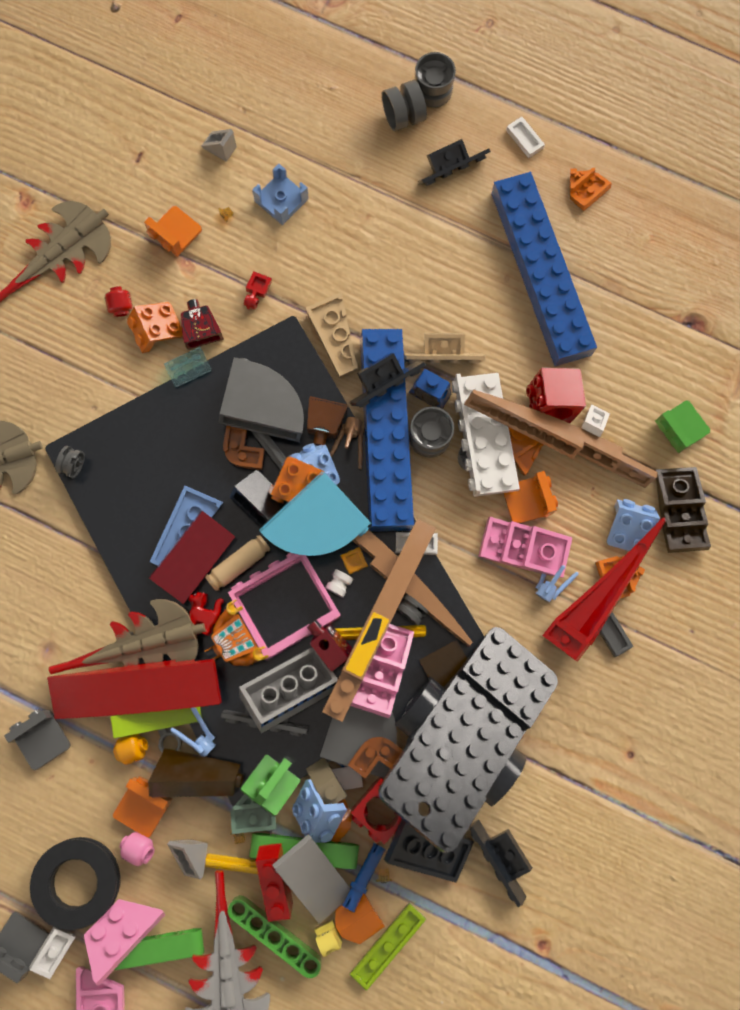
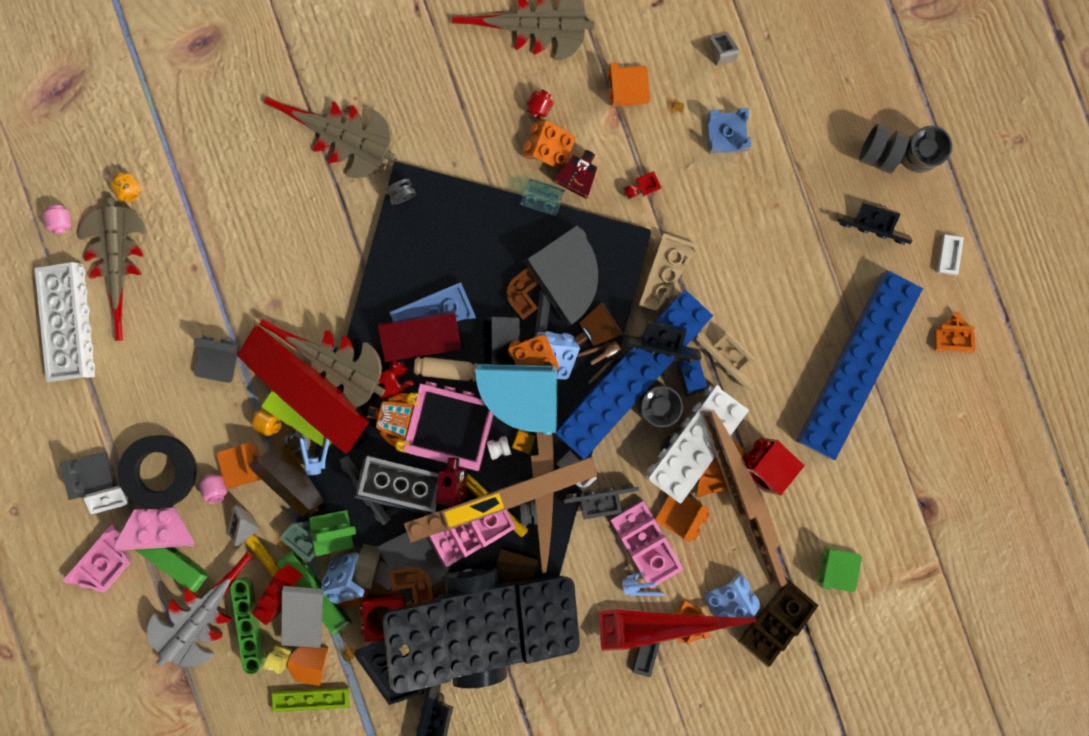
camera: 50 degrees right, 10 degrees up
(363, 877) = (334, 645): blue pin -> none
(460, 550) = (600, 504): none -> dark grey bracket
(595, 420) = (781, 508): white plate -> none

